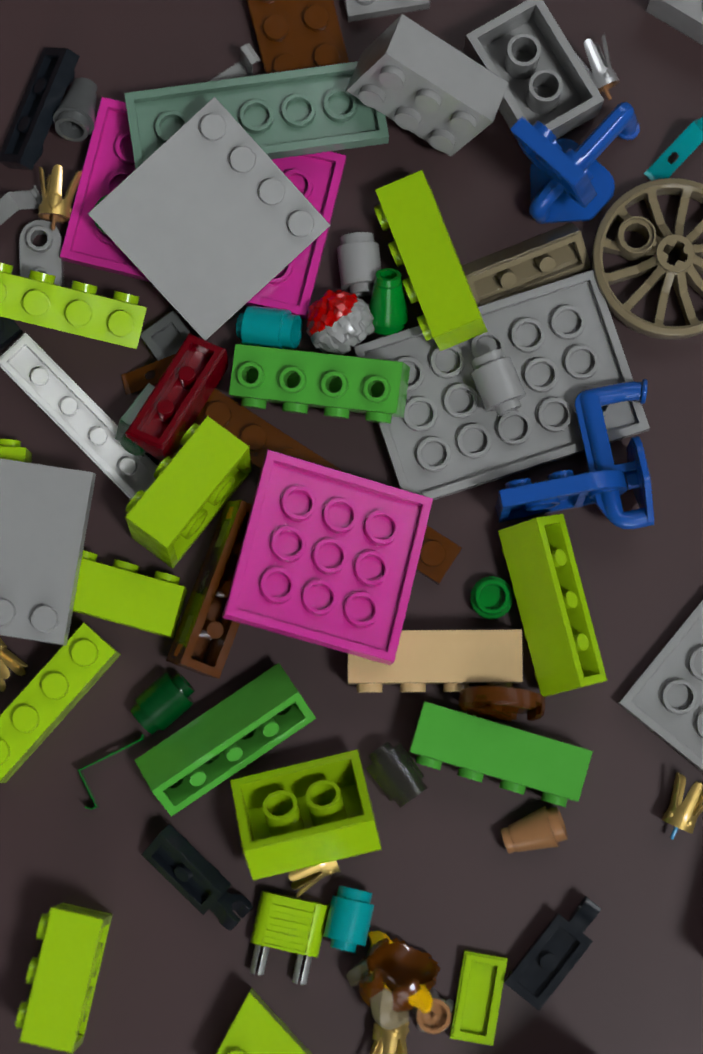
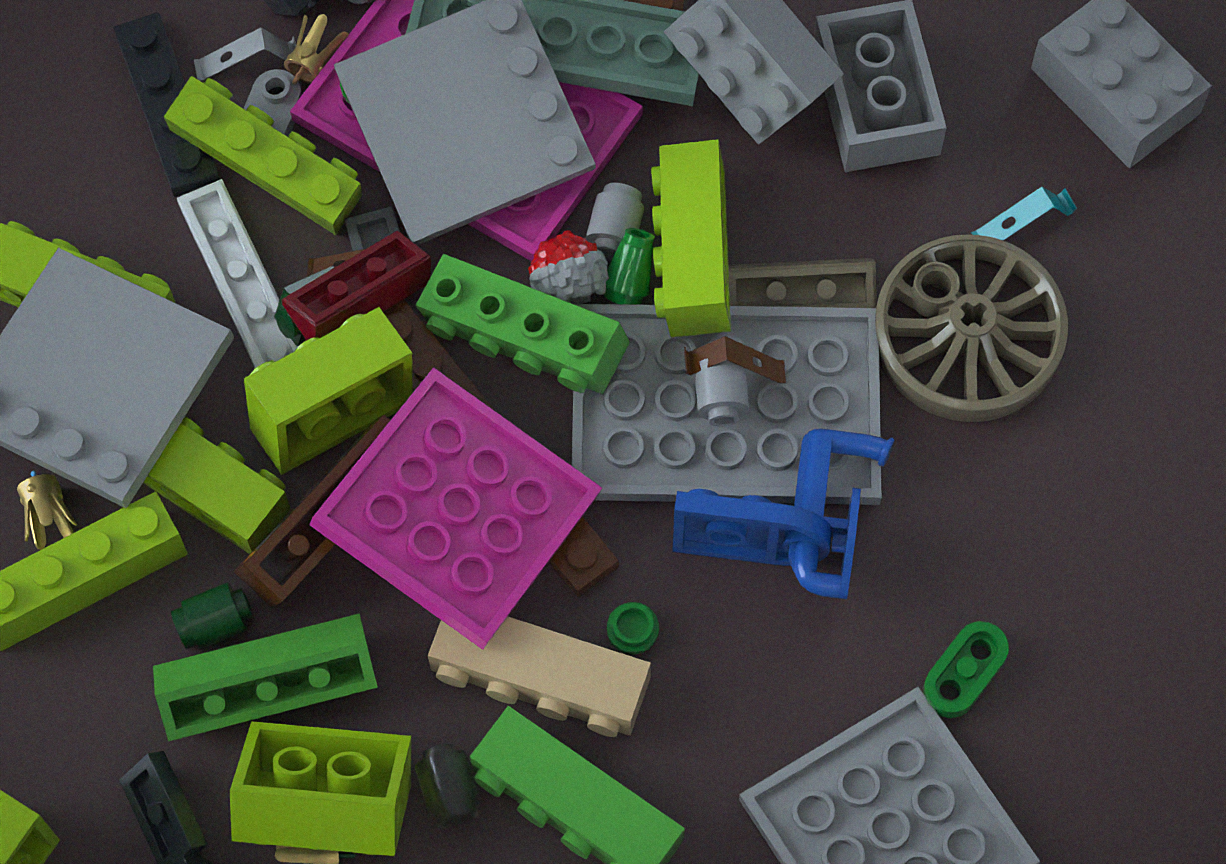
camera: 20 degrees right, 15 degrees down
(84, 779) = (116, 659): green piece -> none
(269, 328) = (490, 251): teal brick -> none
(500, 355) = (737, 353): none -> reddish brown piece
(501, 703) = (600, 738): reddish brown tile -> none
(552, 605) = (698, 654): lime brick -> none
(566, 176) = (880, 203): blue plate -> none
(602, 72) = (957, 110): flat silver piece -> none

